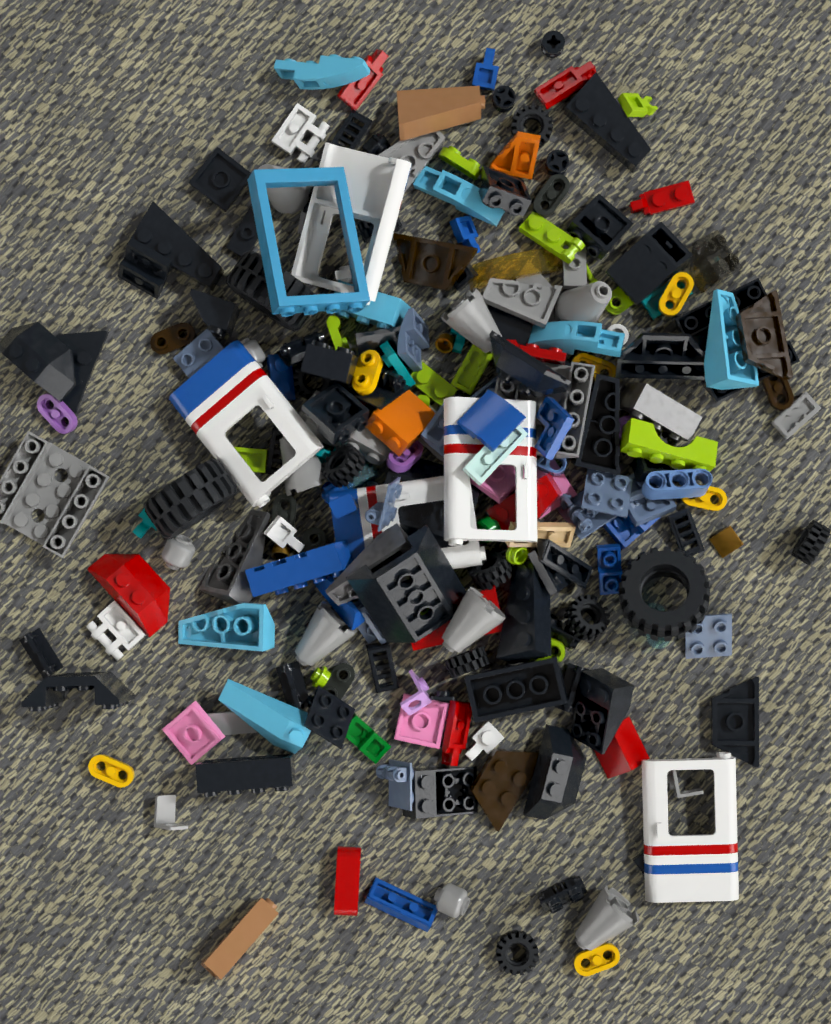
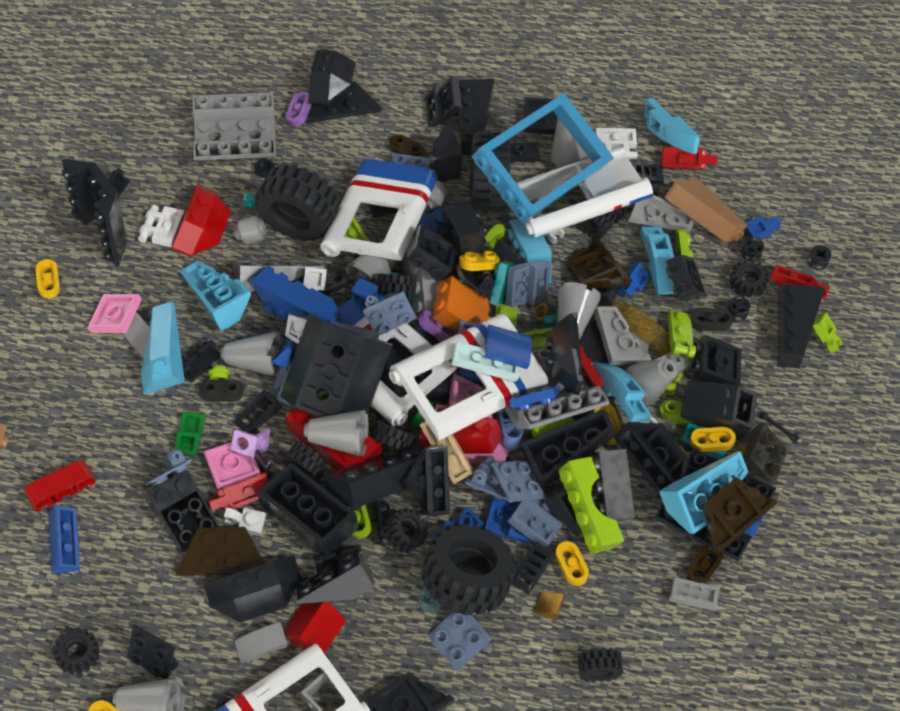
camera: 50 degrees right, 30 degrees down
(110, 492) = (262, 167): none -> black tile
(165, 813) = (37, 330): light grey bracket -> none
(245, 773) = (105, 360): black brick -> none
(328, 716) = (190, 389): black hinge -> none
(452, 900) = (92, 572): light grey head -> none
(517, 555) = (417, 447): lime plate -> none
(518, 156) = (721, 278): orange wing -> none
(606, 799) = (260, 642): none -> light grey slope
(663, 199) = (776, 396): red hinge -> none
(684, 477) = (565, 526): medium blue beam -> none
(709, 215) = (793, 436): none -> black hinge

